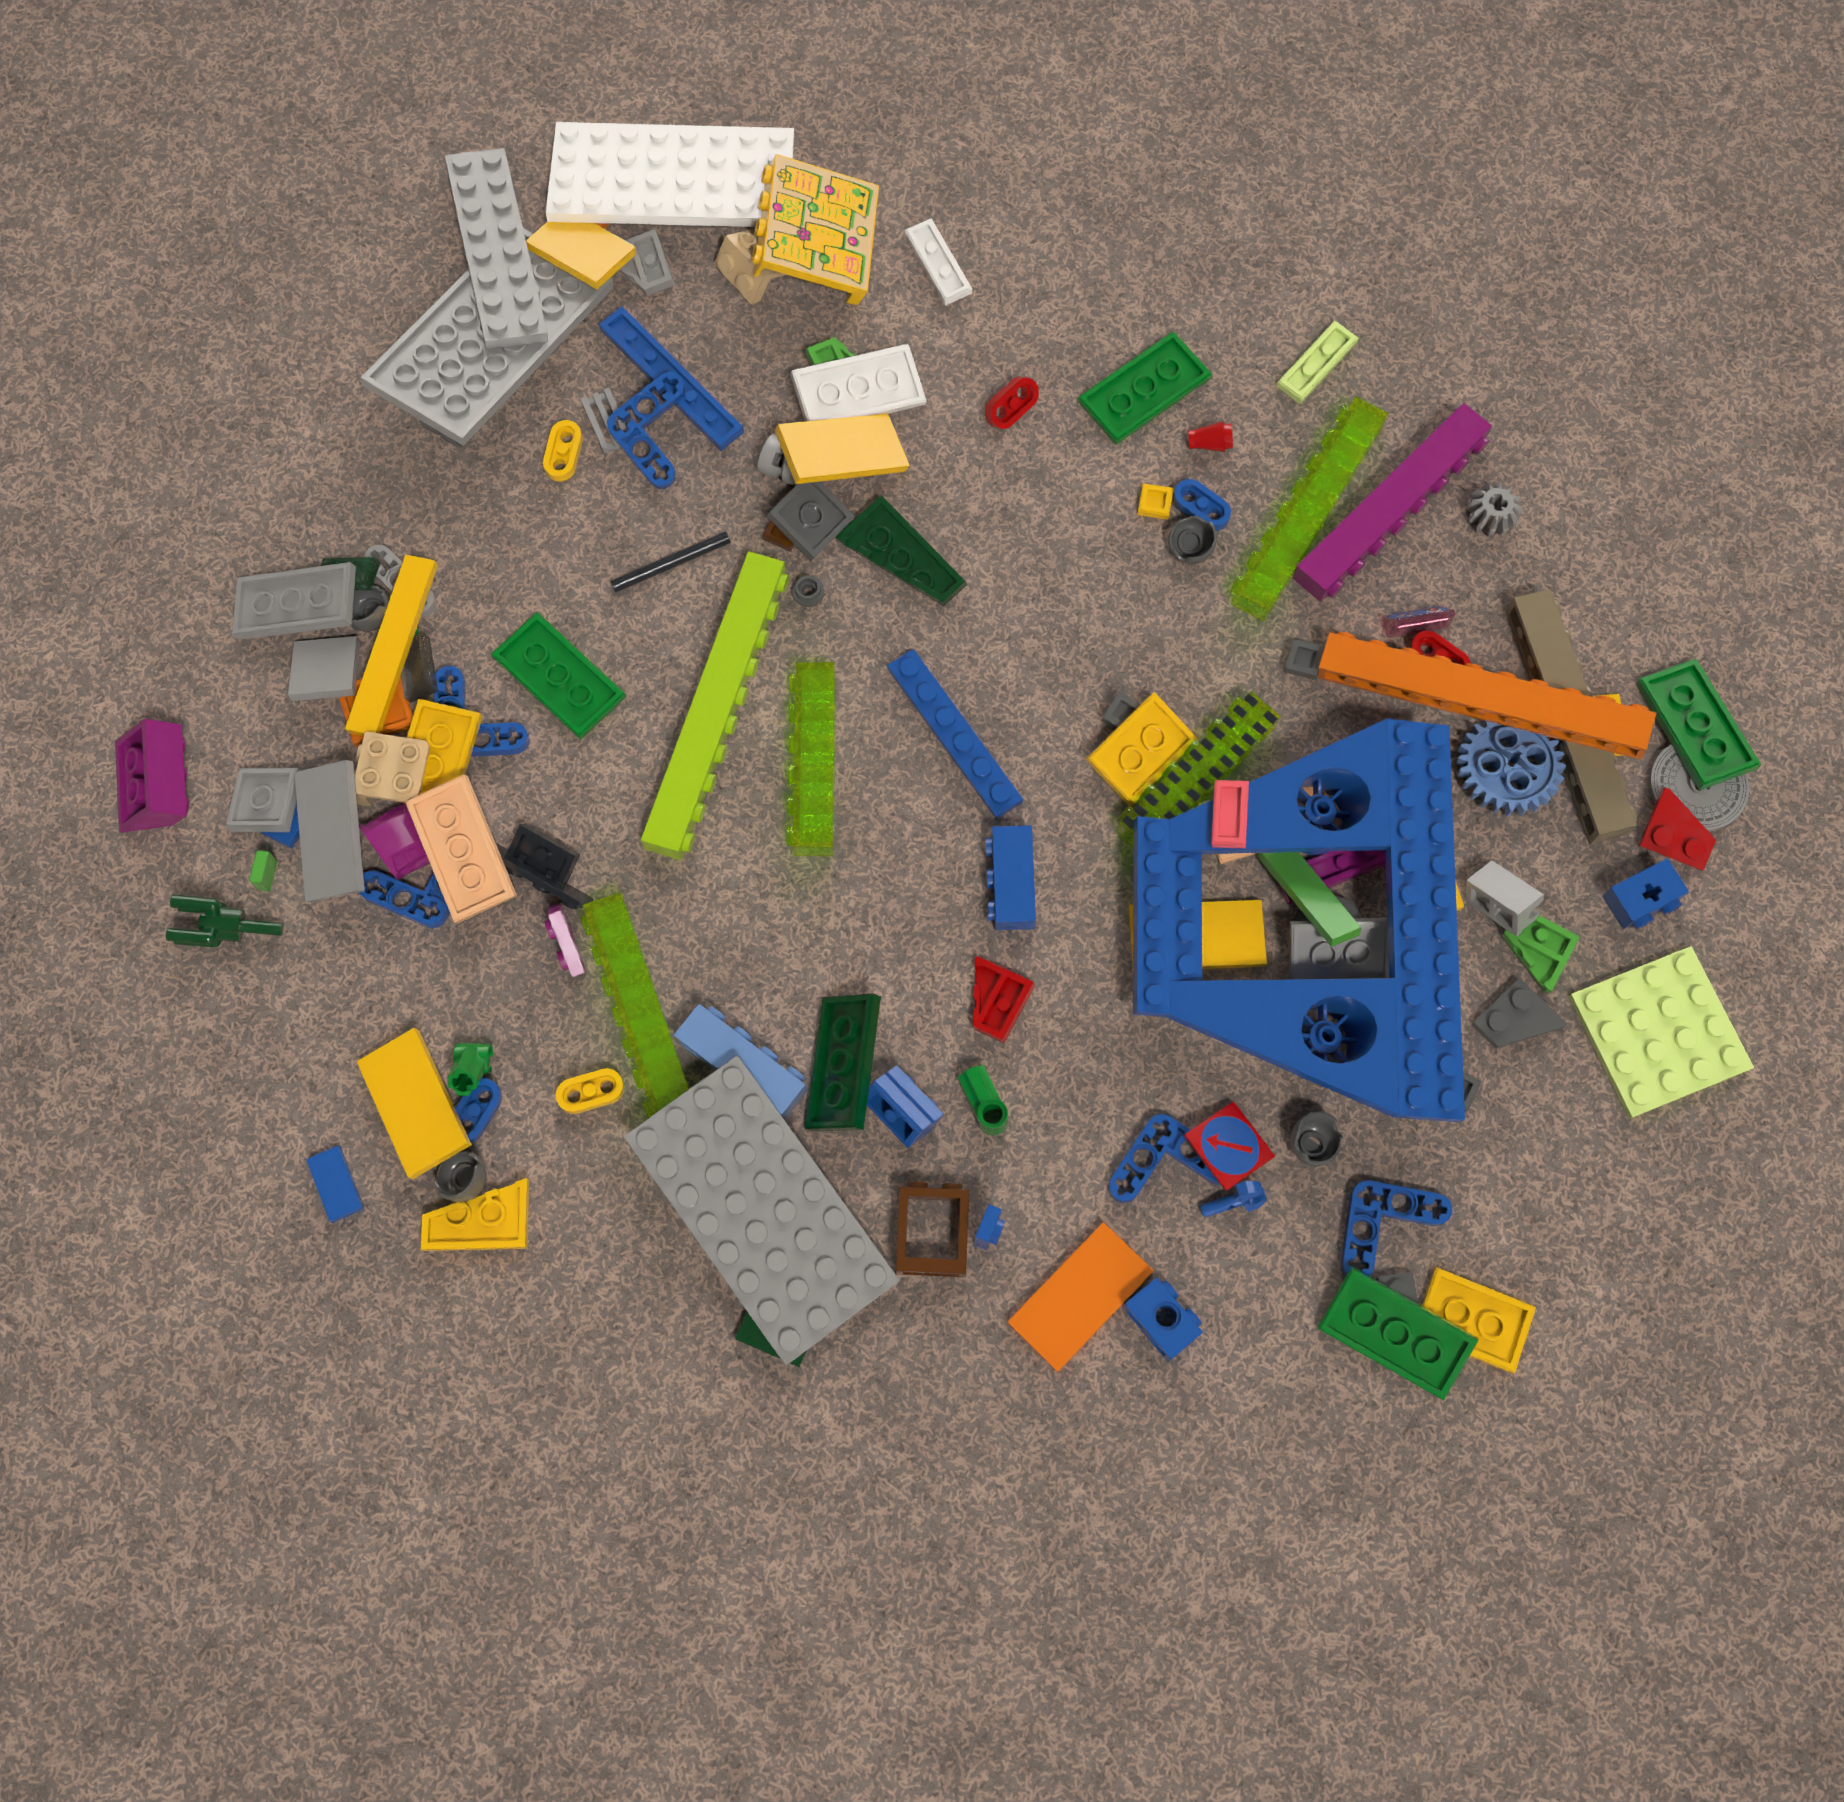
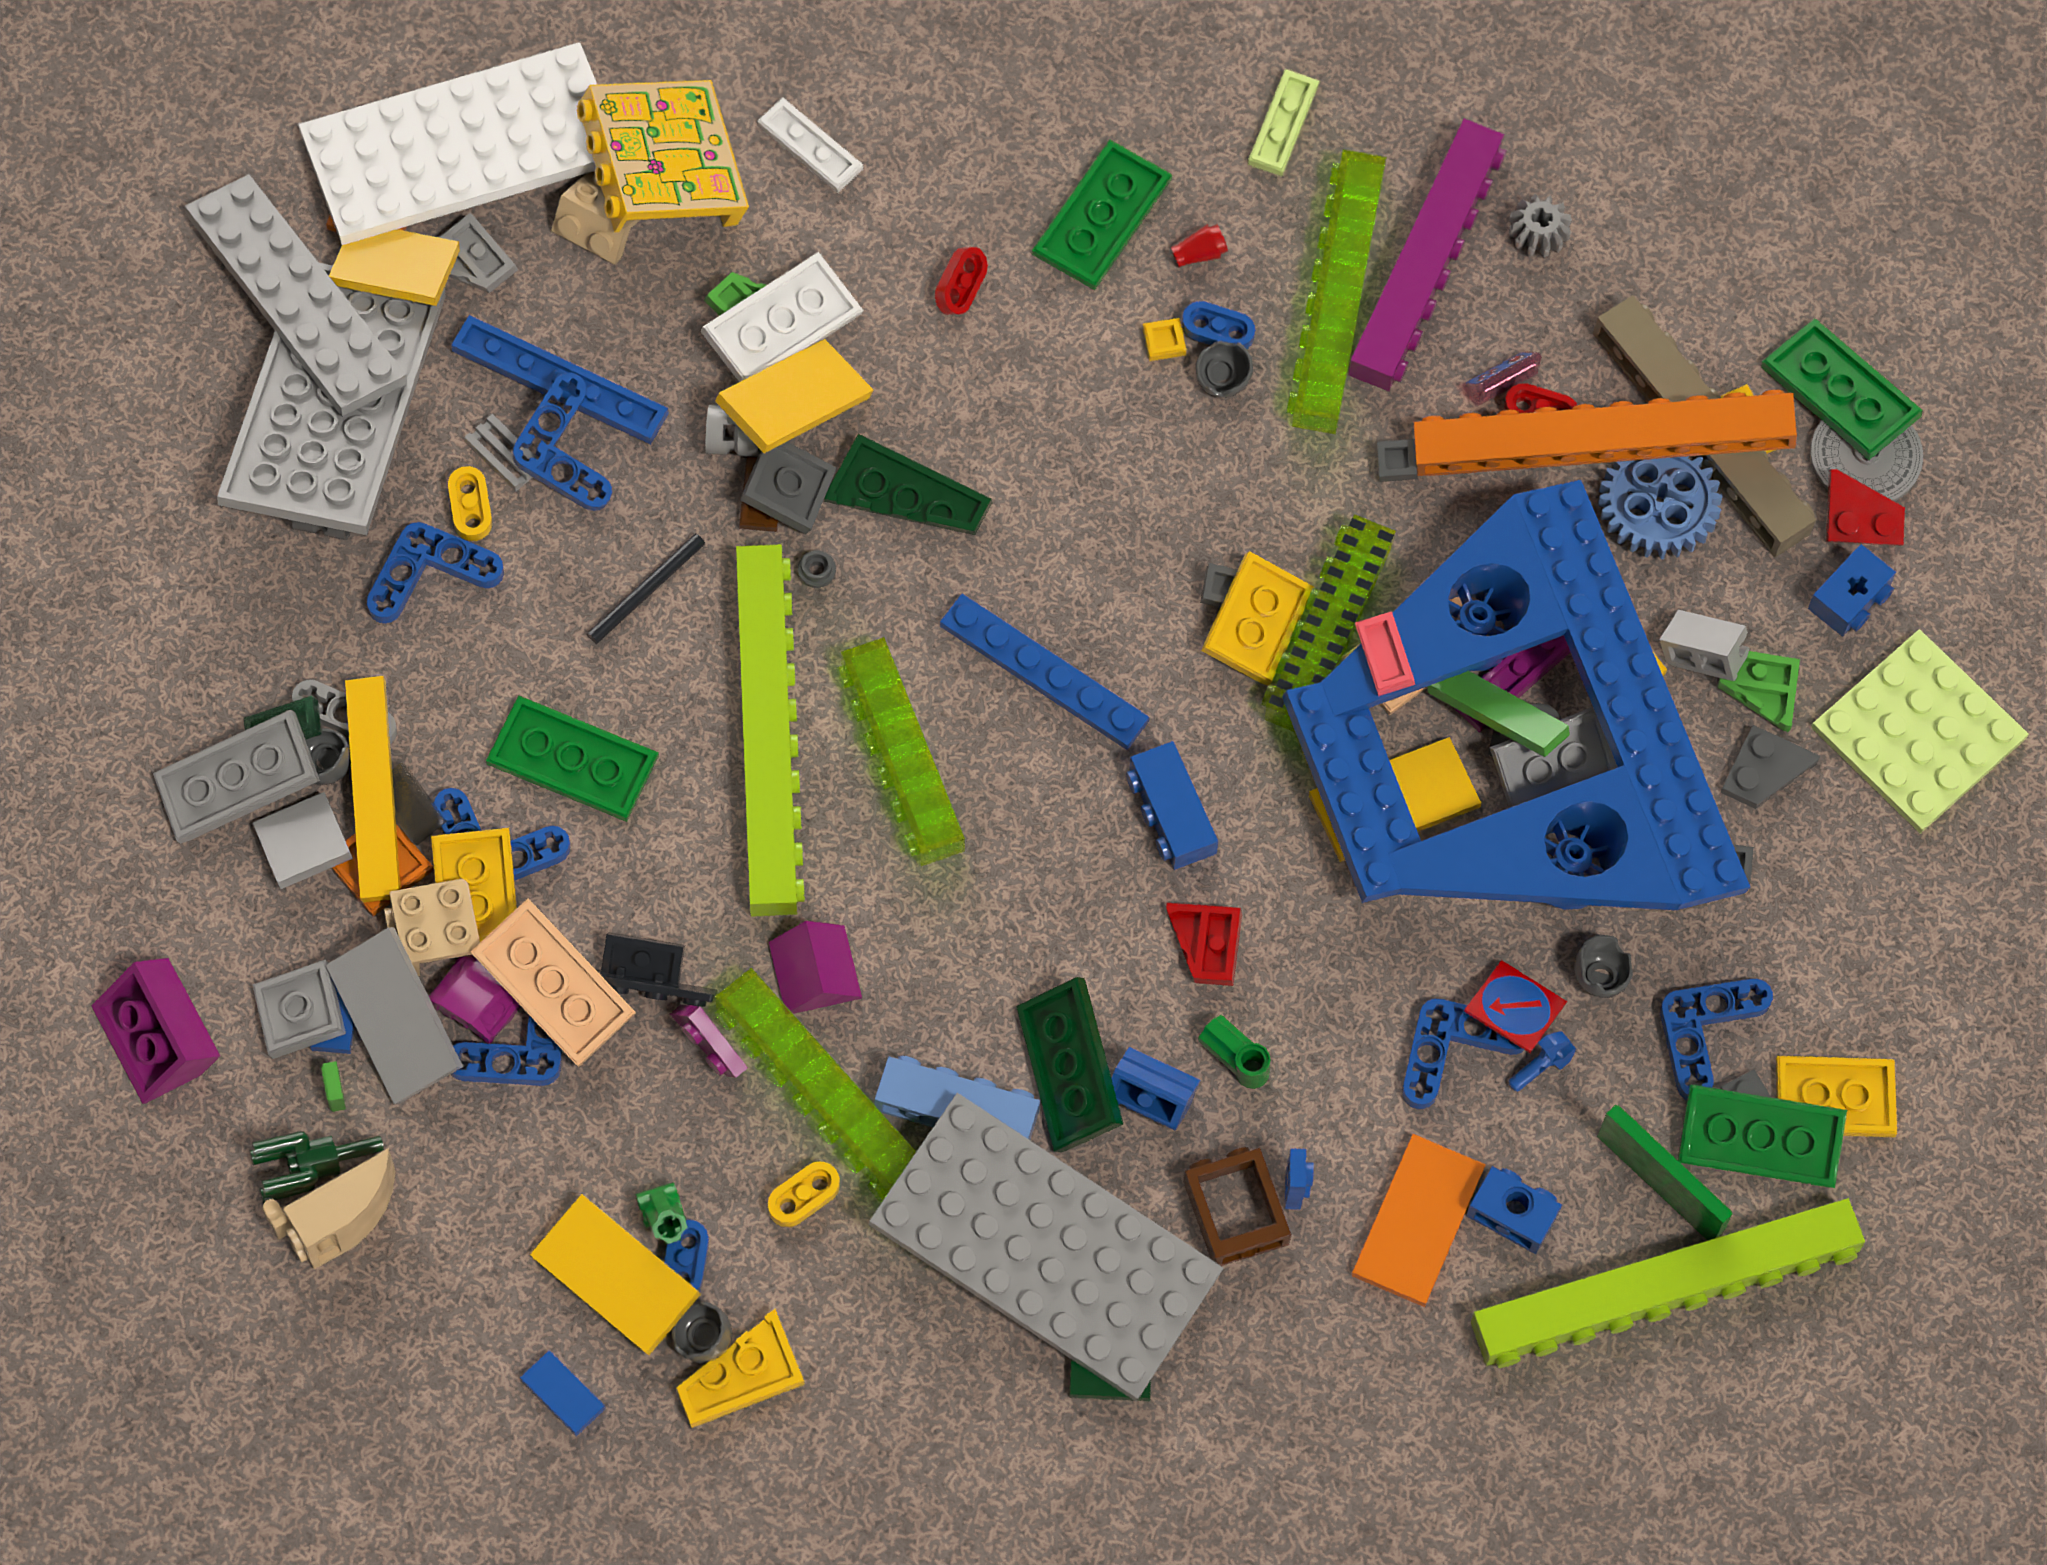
camera: 25 degrees left, 5 degrees down
(218, 974) = (336, 1213): none -> tan piece
(506, 481) = (418, 558): none -> blue beam
(676, 908) = (814, 966): none -> magenta slope
(1270, 1431) = (1667, 1282): none -> lime brick
(1300, 1338) = (1664, 1173): none -> green tile

